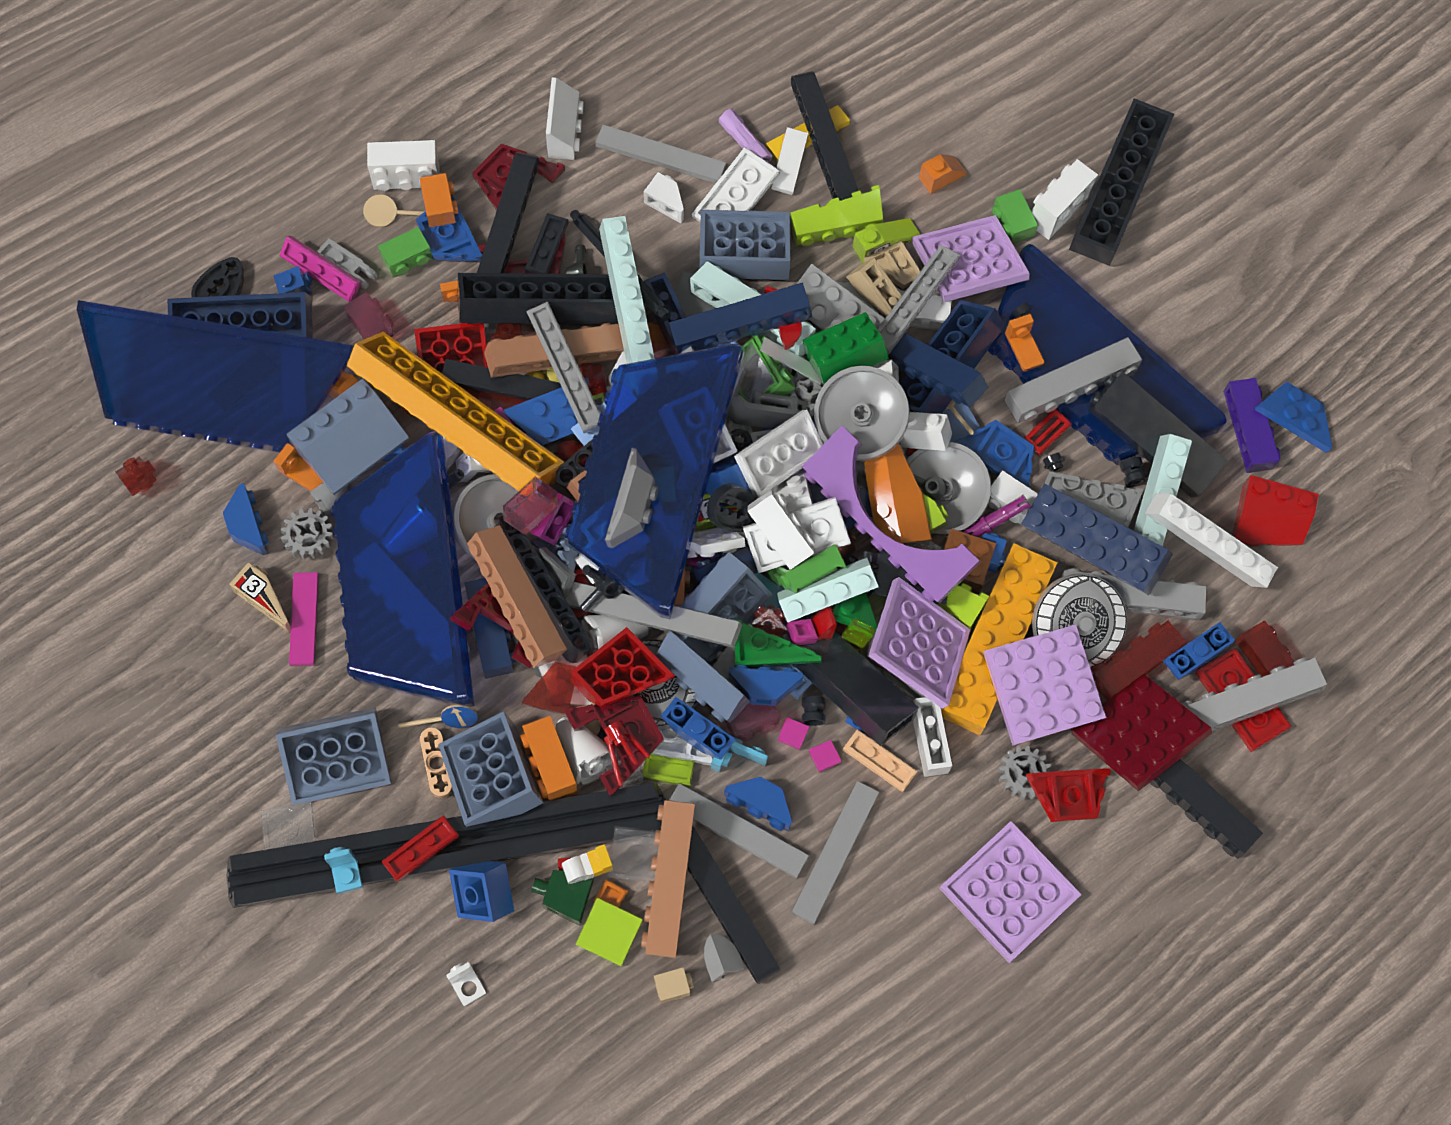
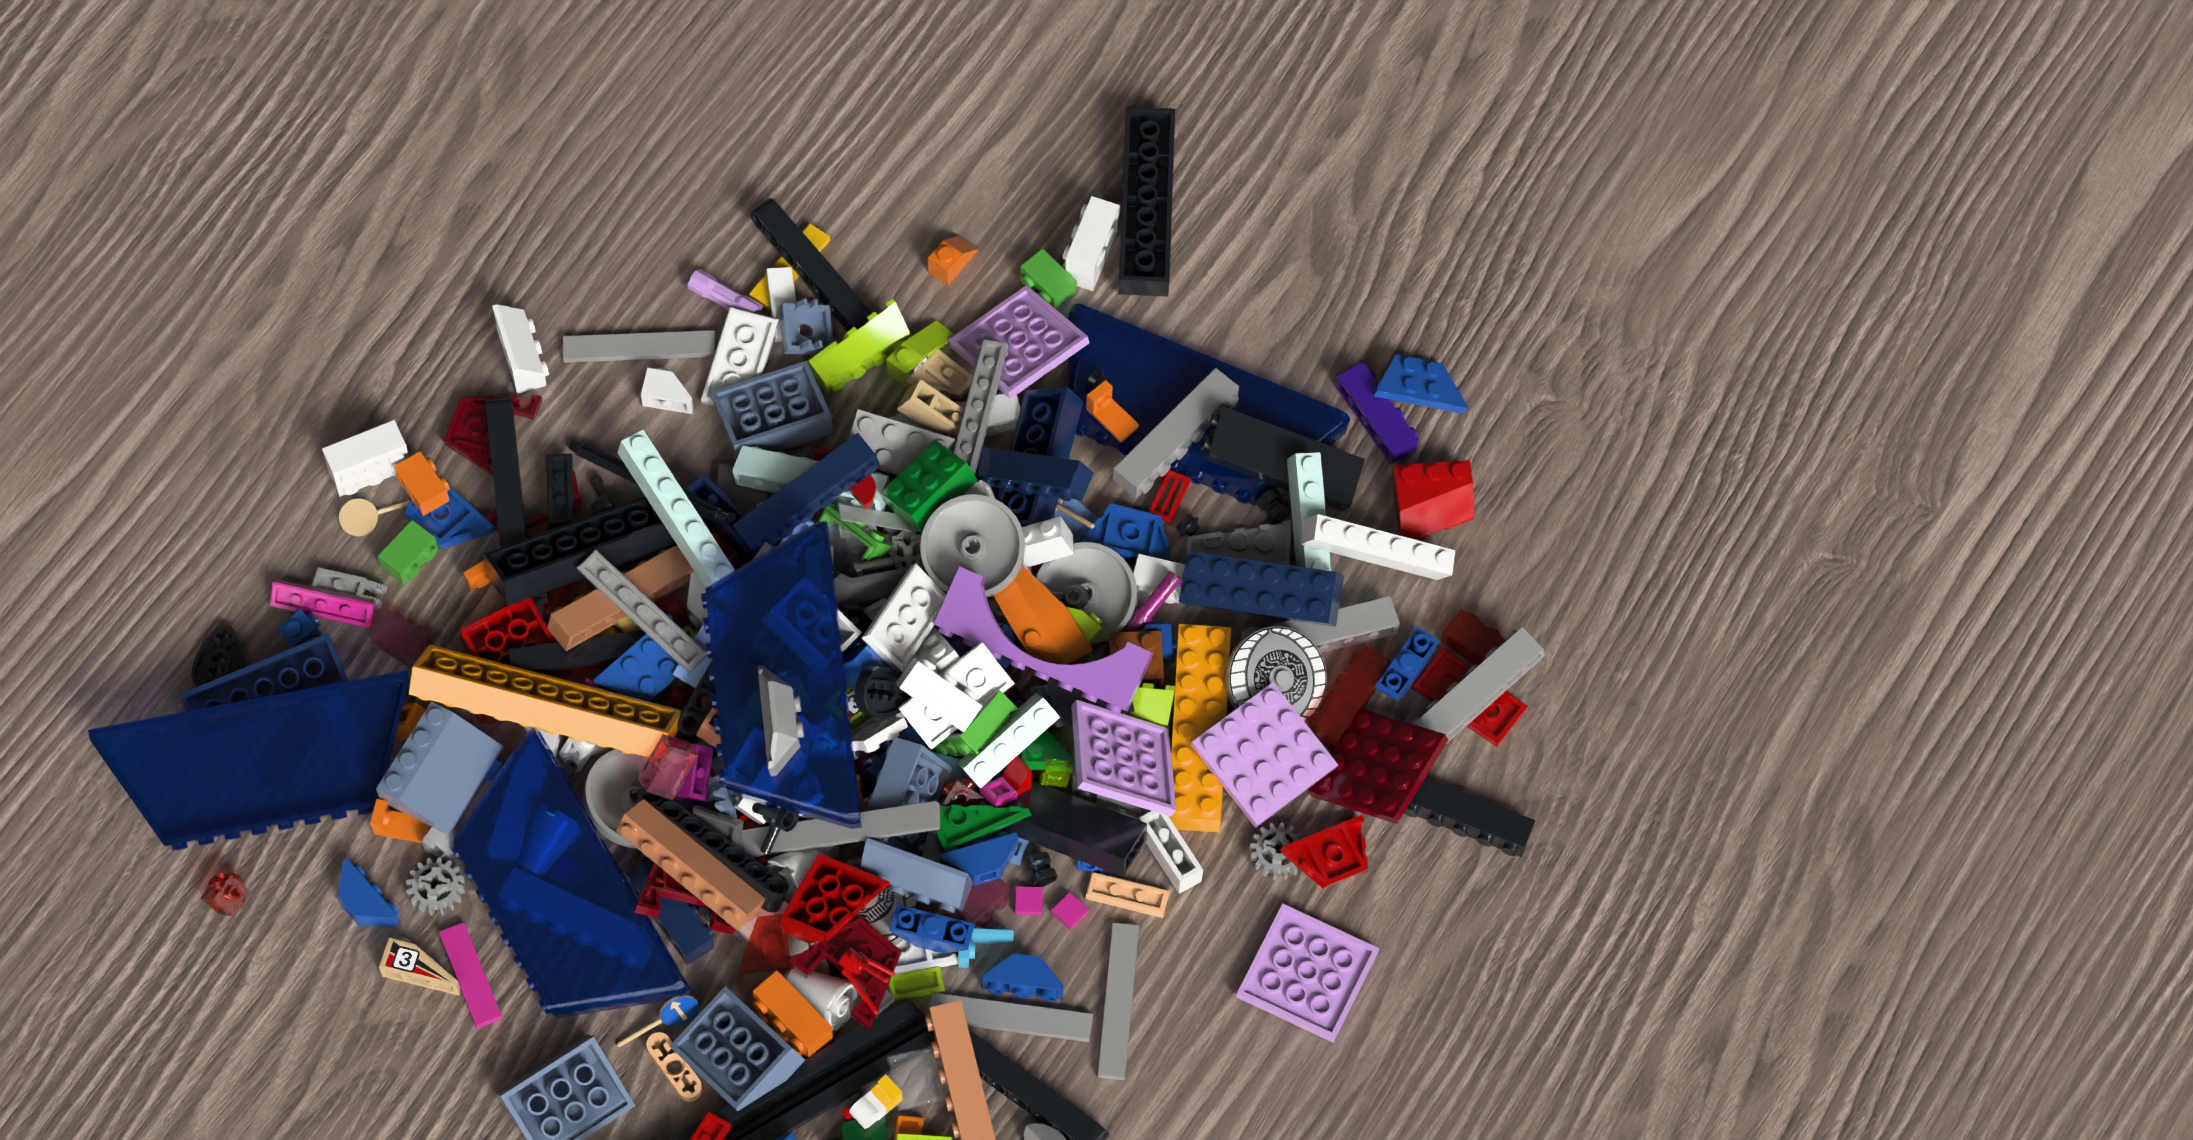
camera: 20 degrees left, 5 degrees down
(806, 175) = (810, 314): none -> sand blue piece

